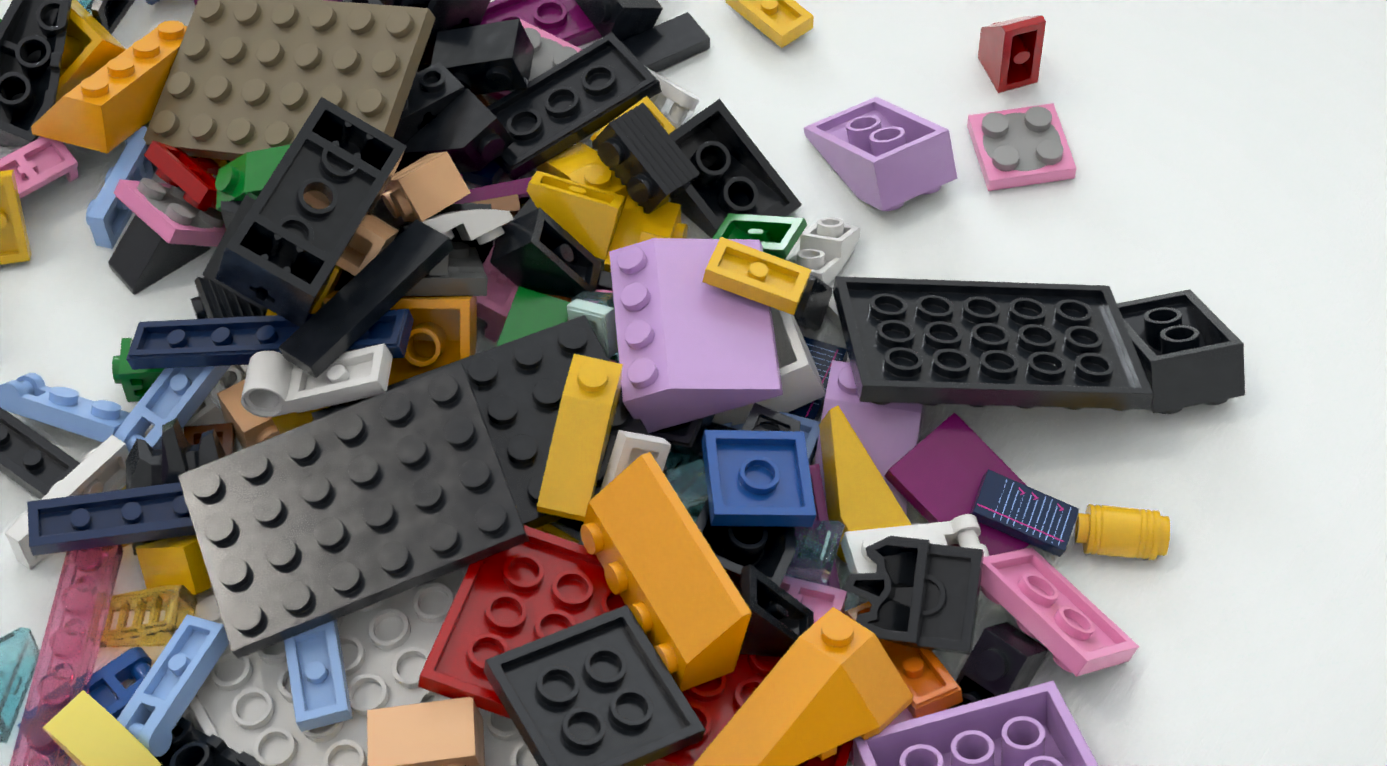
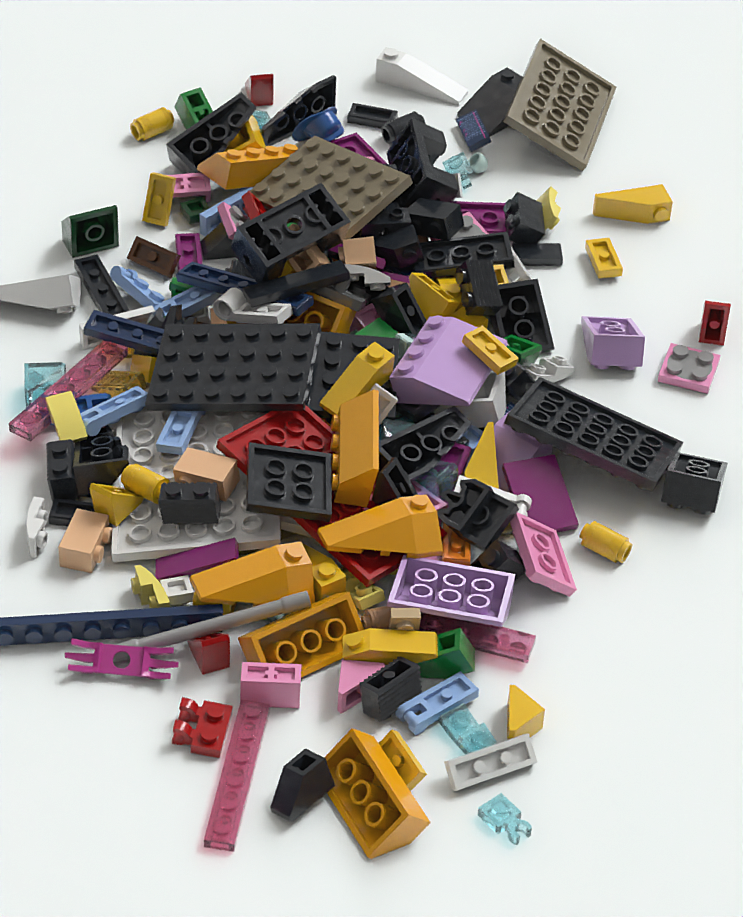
camera: 25 degrees right, 10 degrees down
(50, 331) = (153, 257): none -> reddish brown plate
(65, 207) = (192, 208): none -> dark green plate
(104, 297) = (189, 248): none -> magenta tile
(758, 478) = (429, 431): blue plate -> none
(1024, 513) = (559, 511): dark blue tile -> none

